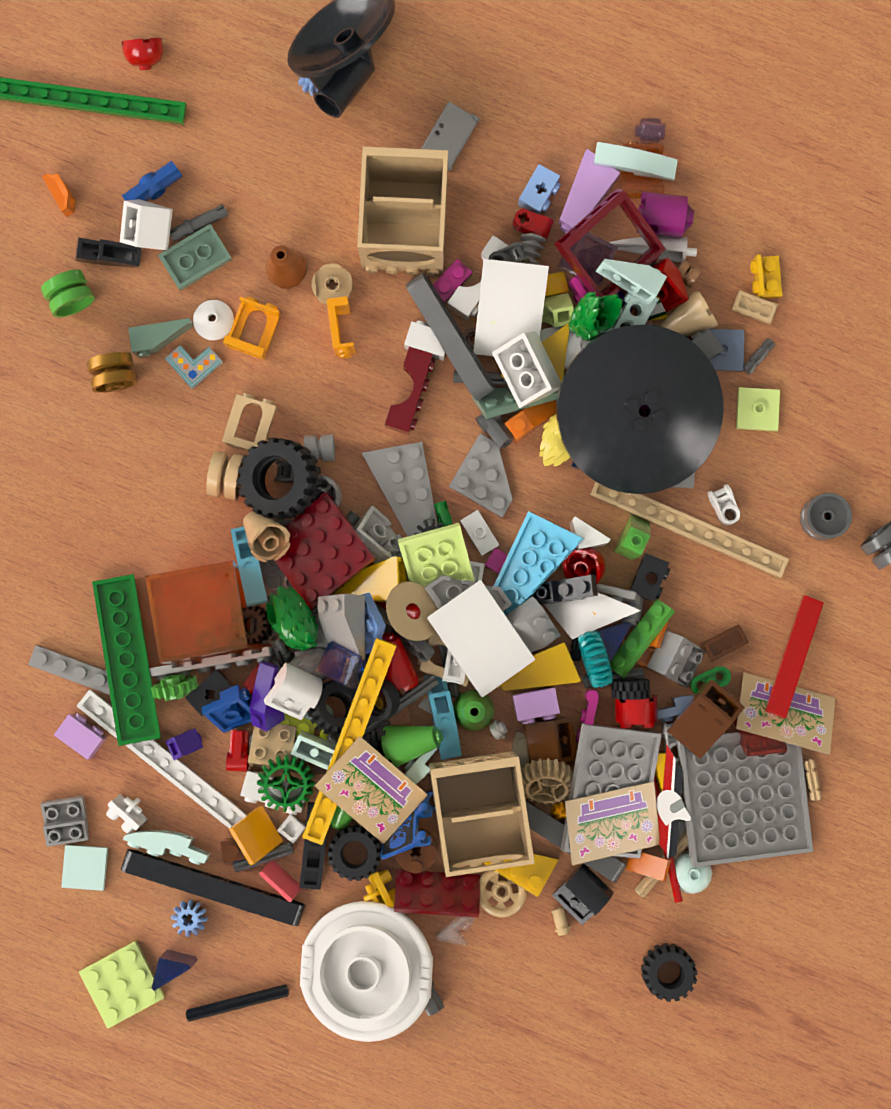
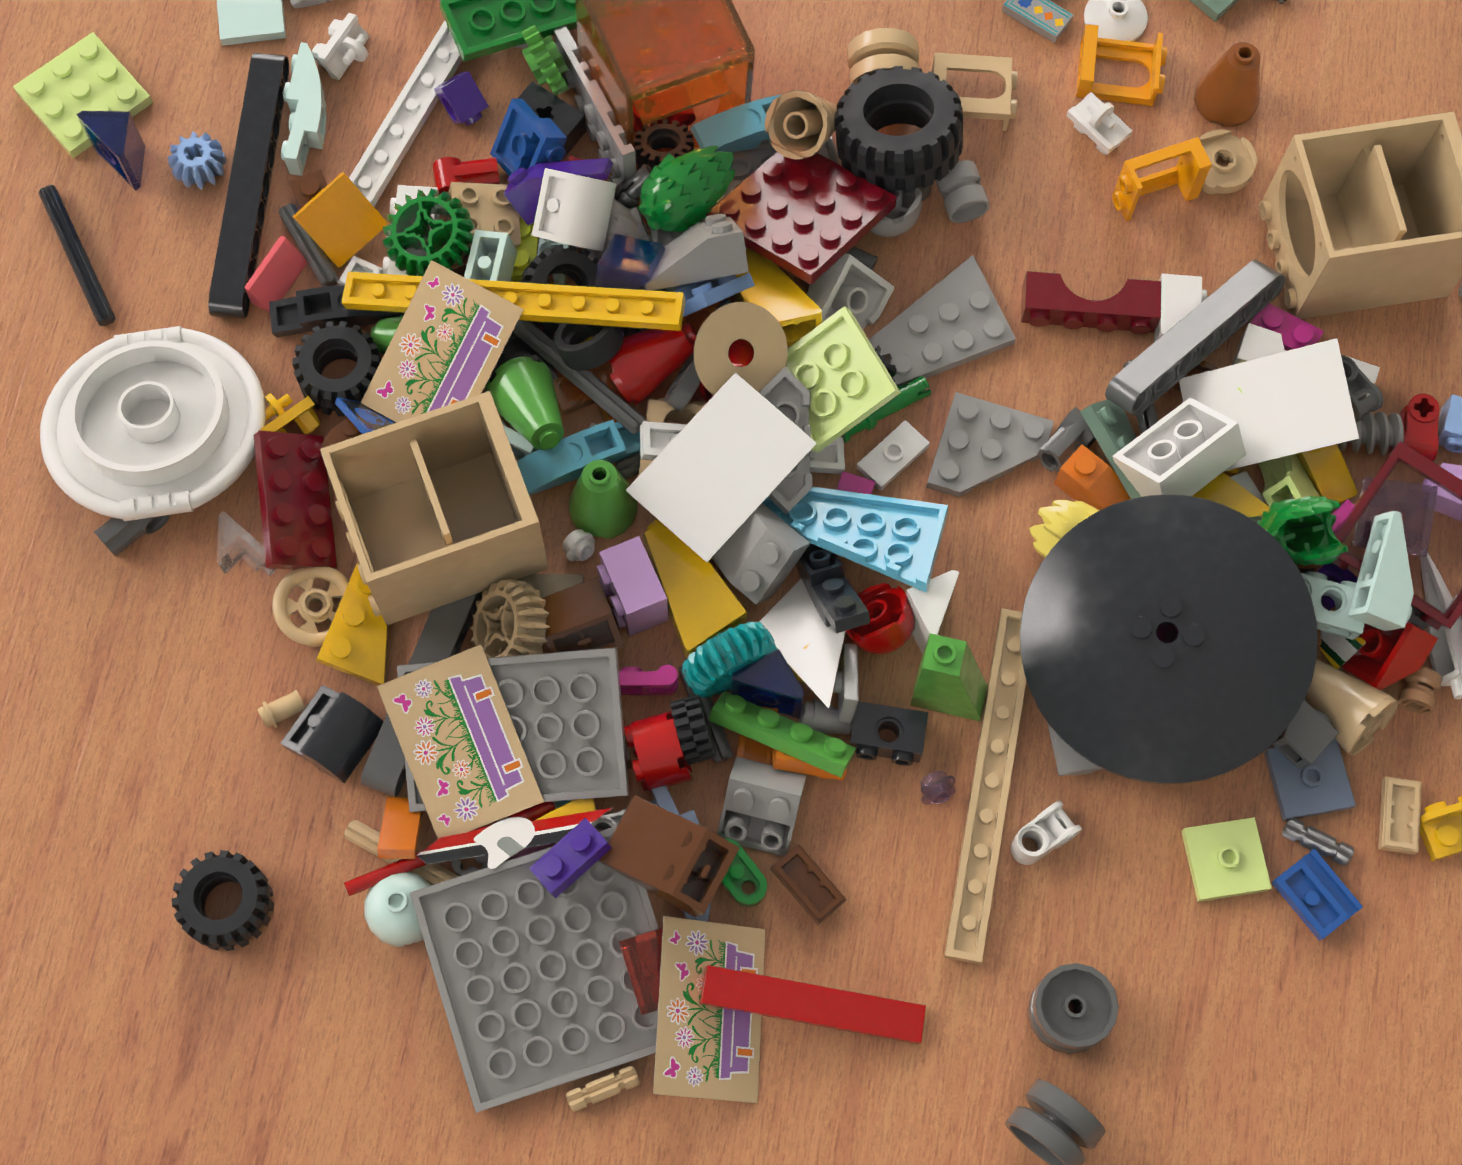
camera: 75 degrees right, 15 degrees down
(291, 352) = (1099, 123): none -> white hips
(686, 558) = (937, 787): none -> plate
(695, 774) = (570, 858): none -> dark purple plate
(788, 366) = (1317, 894): none -> blue plate

